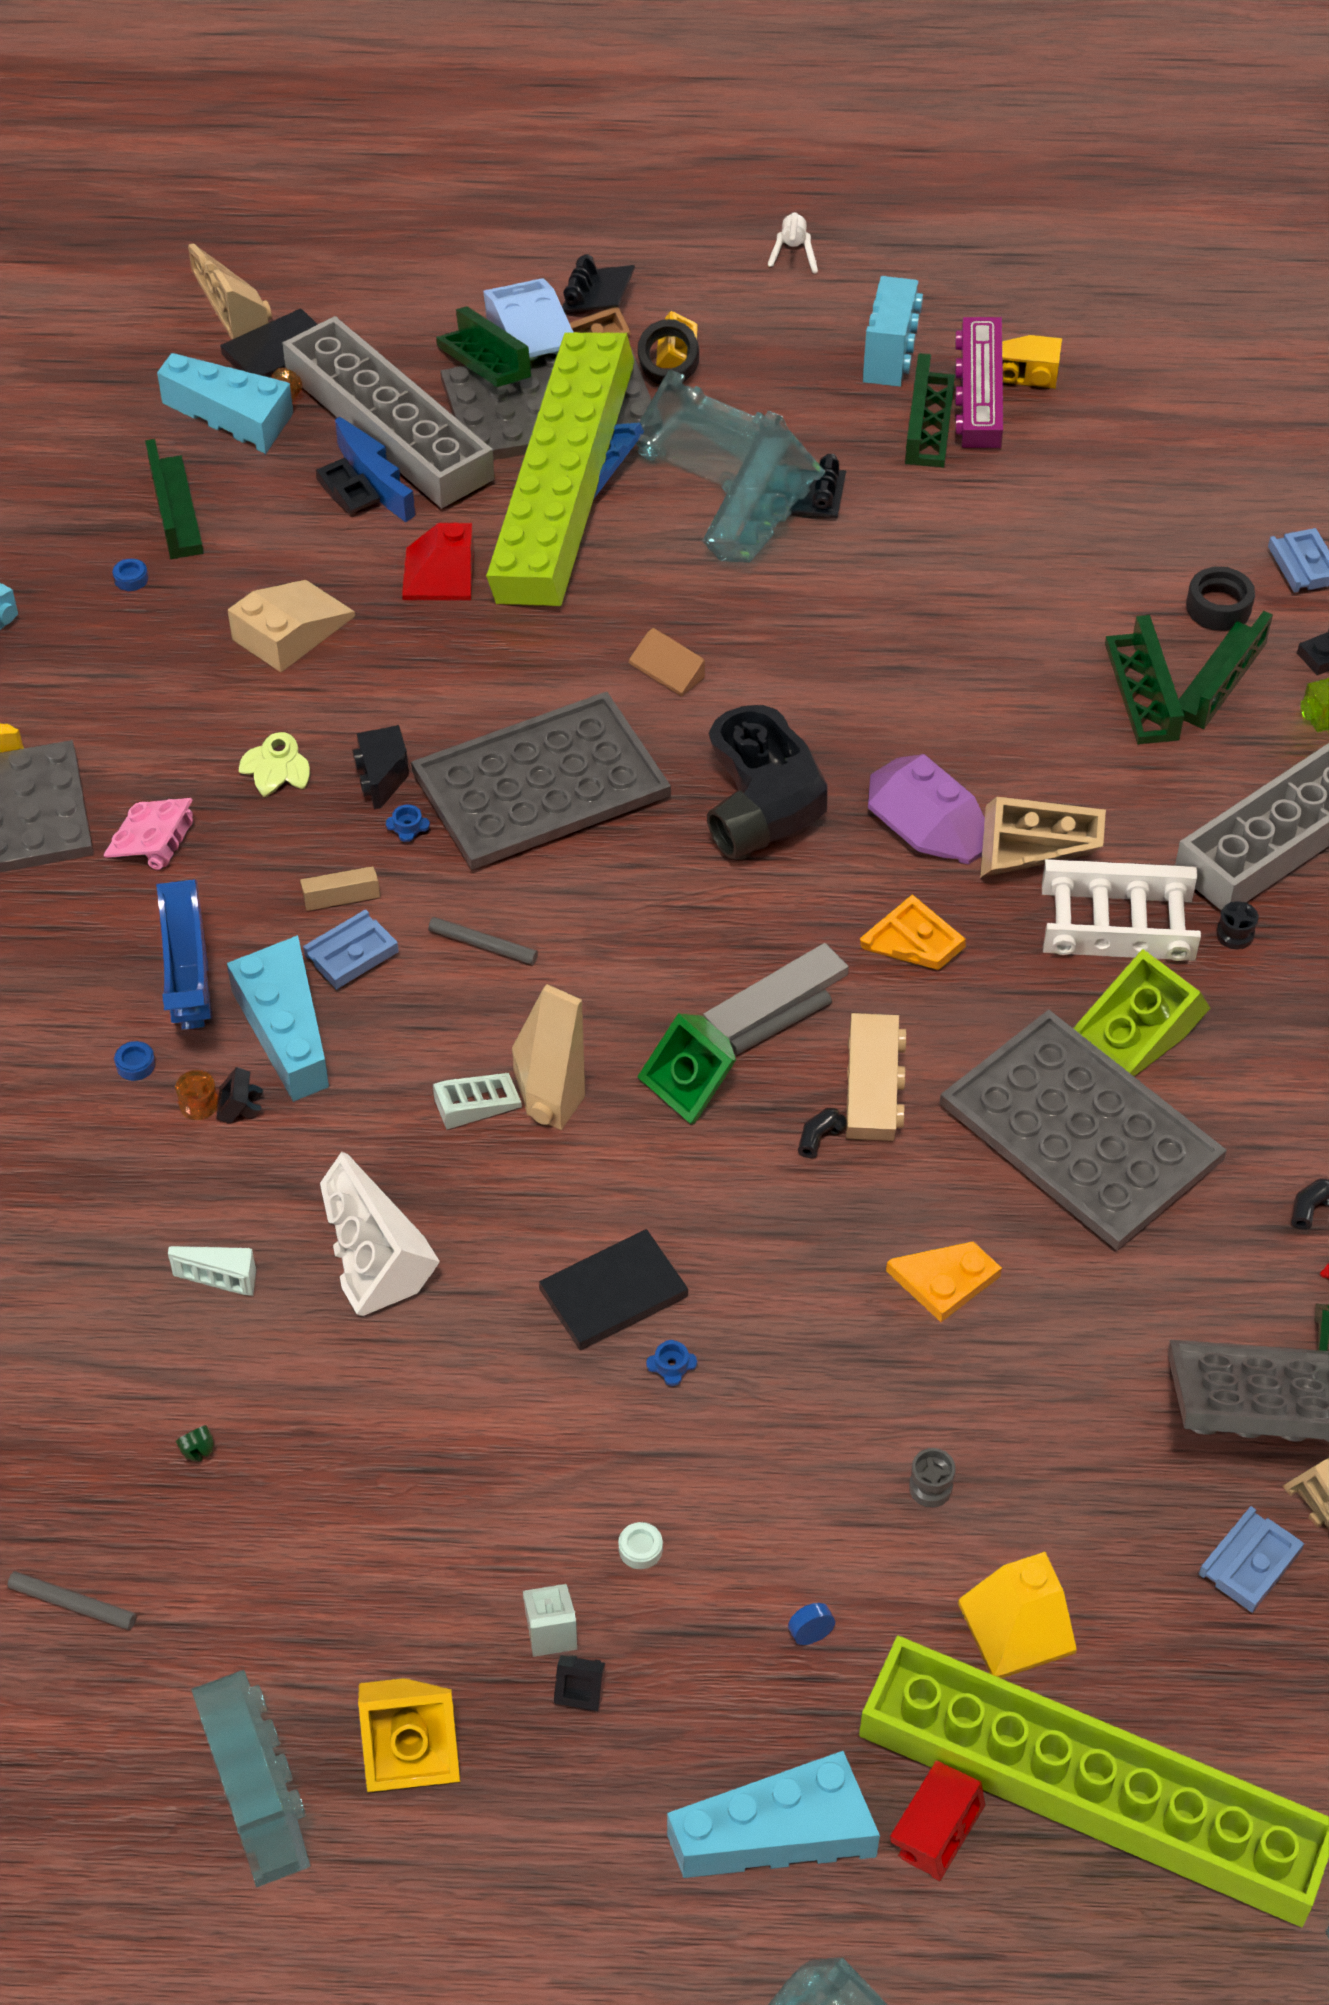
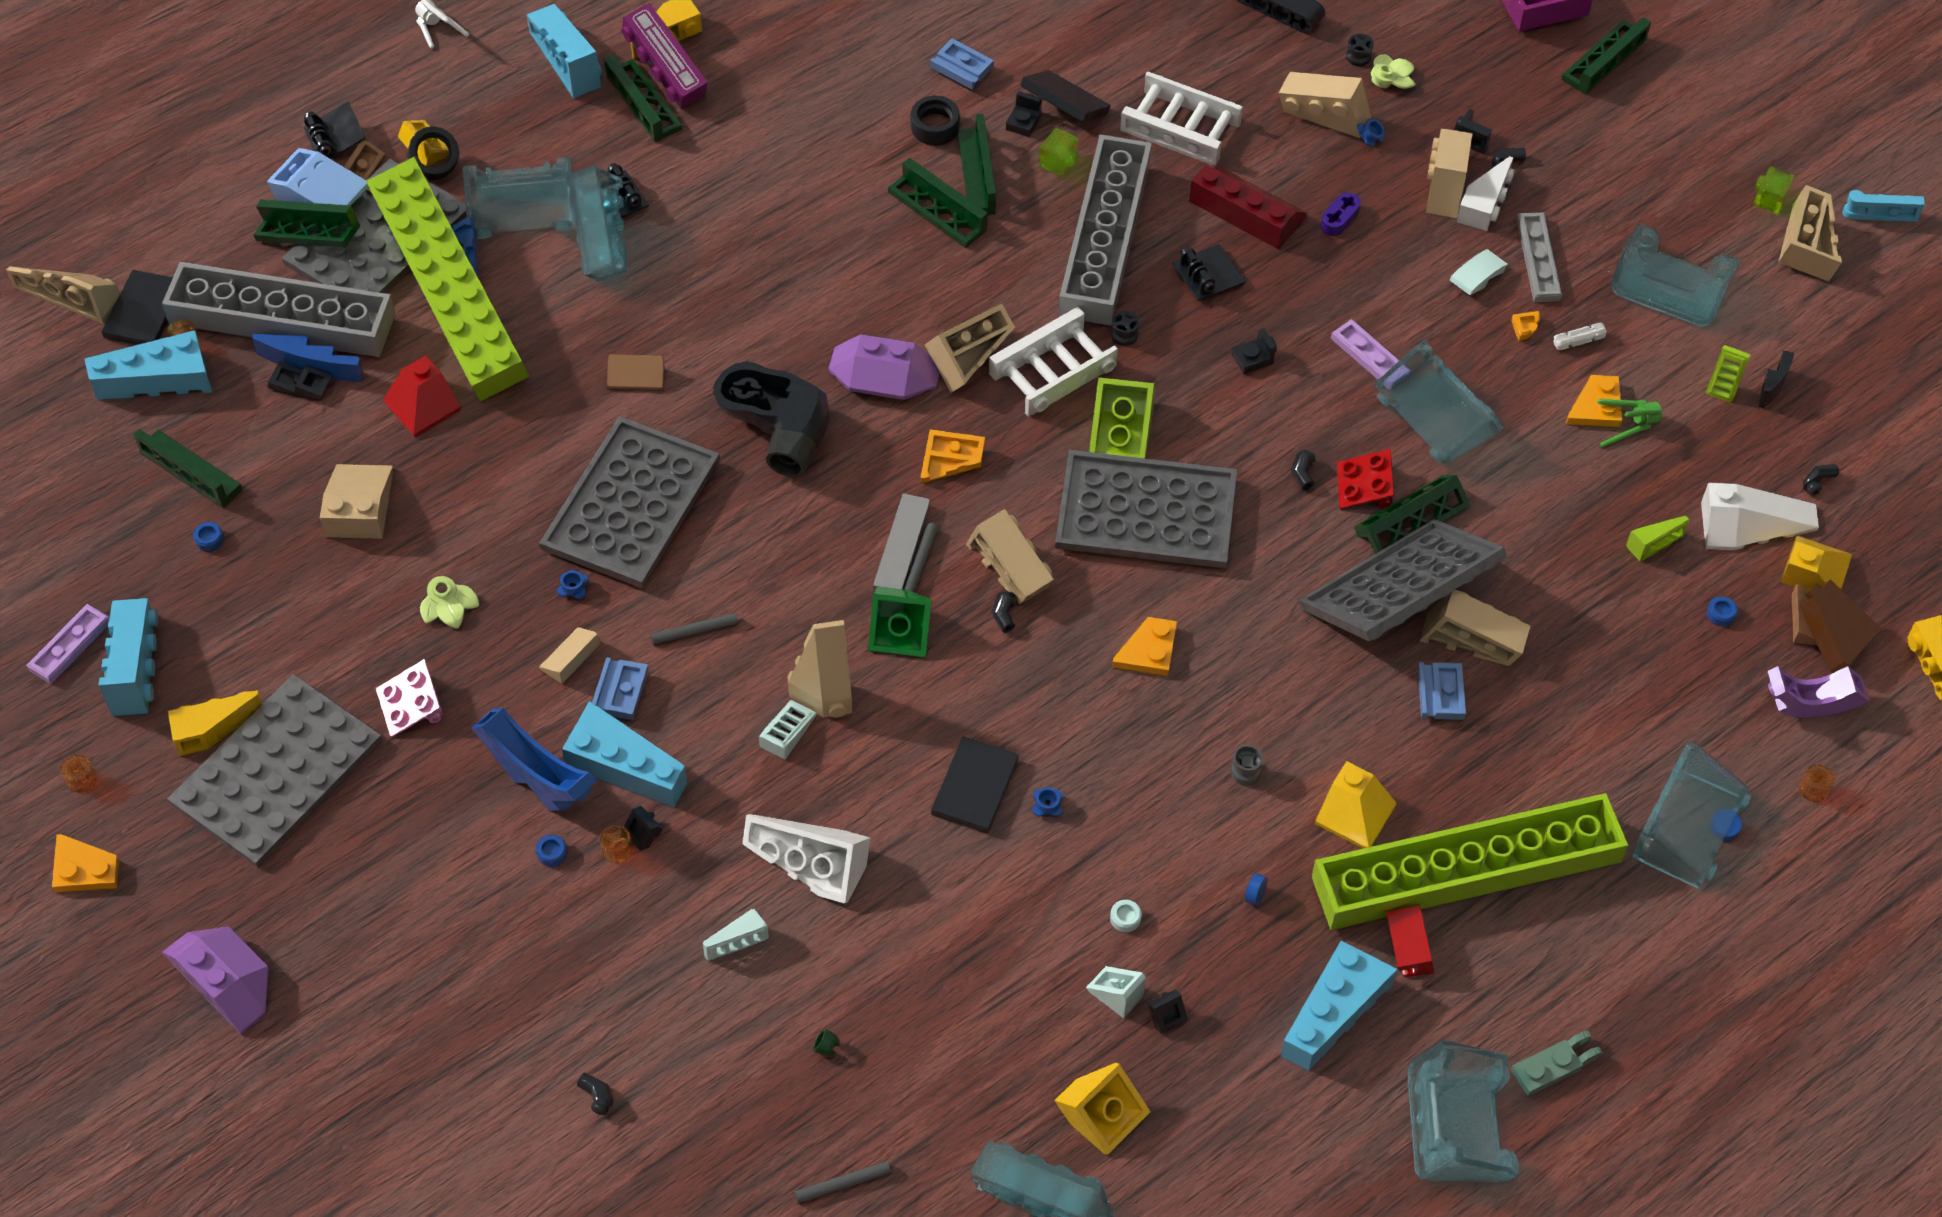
camera: 40 degrees left, 5 degrees up
(383, 761) = (518, 554): black slope -> none

